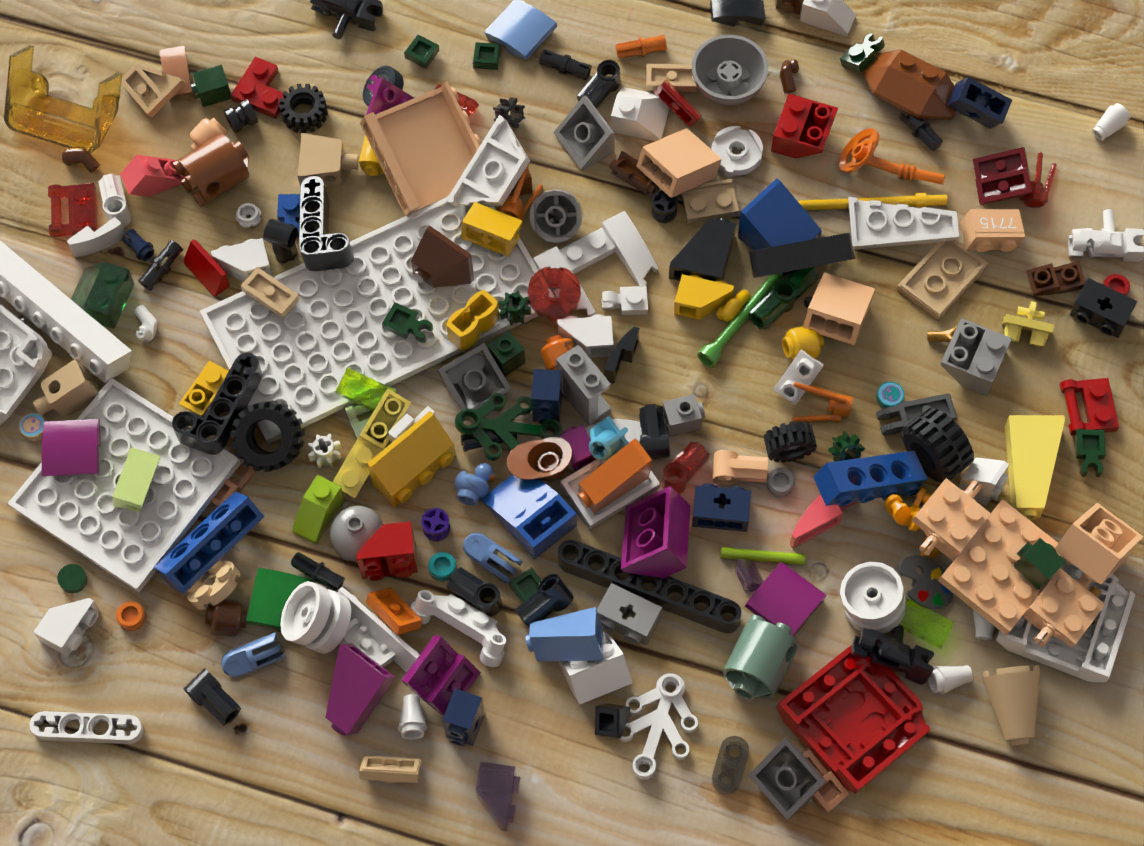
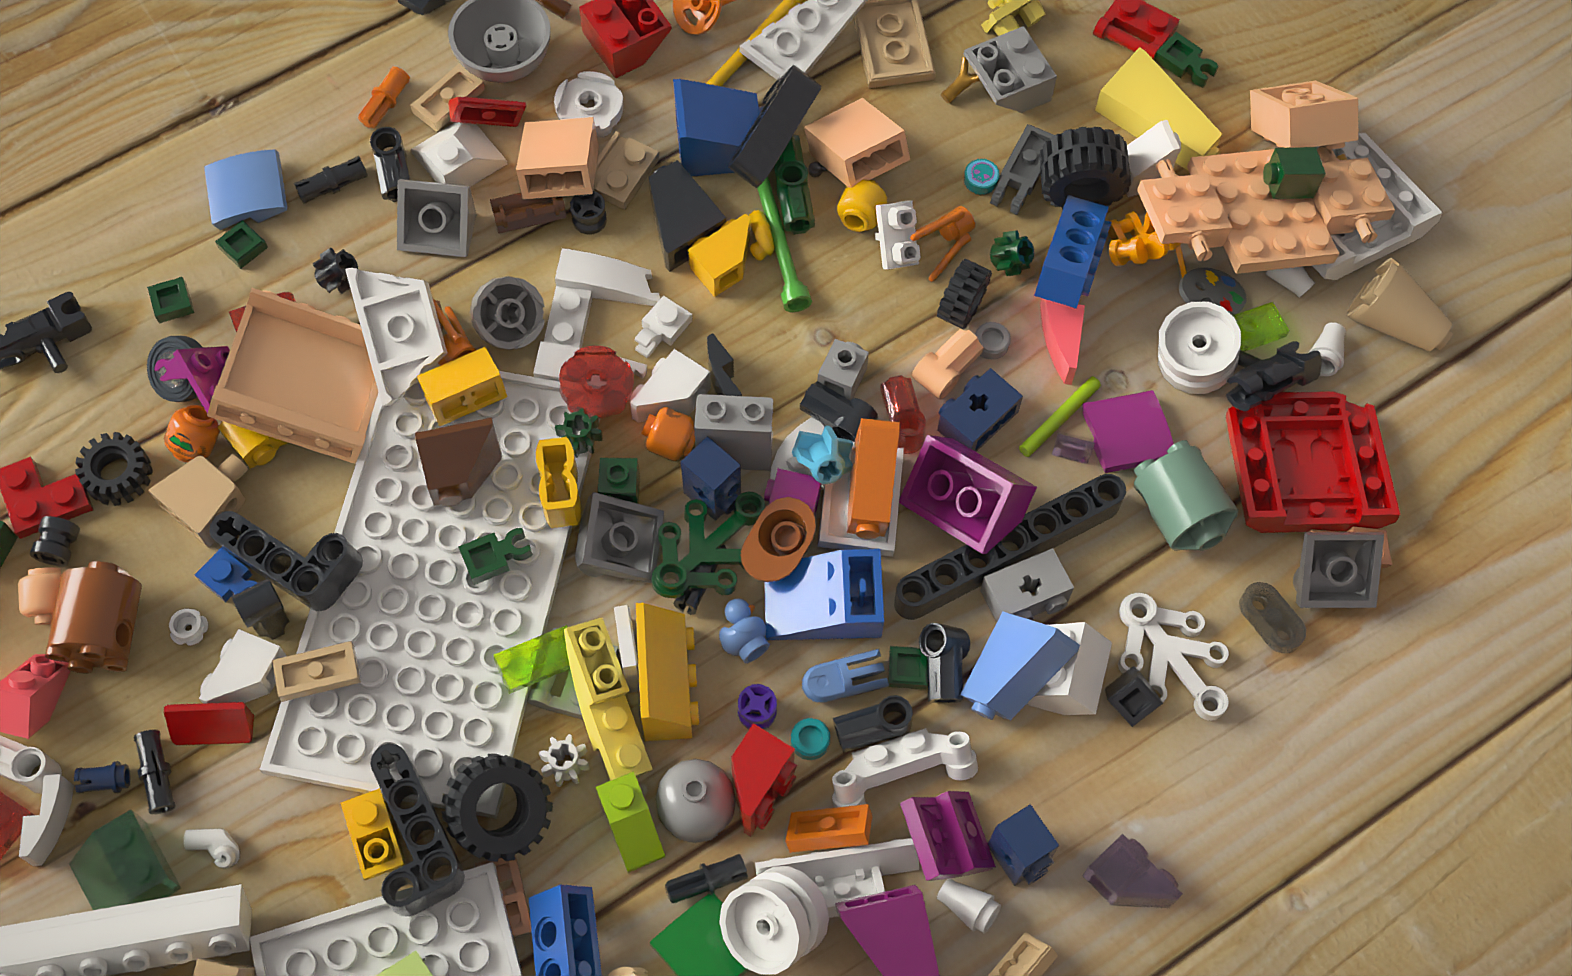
camera: 55 degrees left, 0 degrees up
(348, 127) = (191, 433): none -> orange head

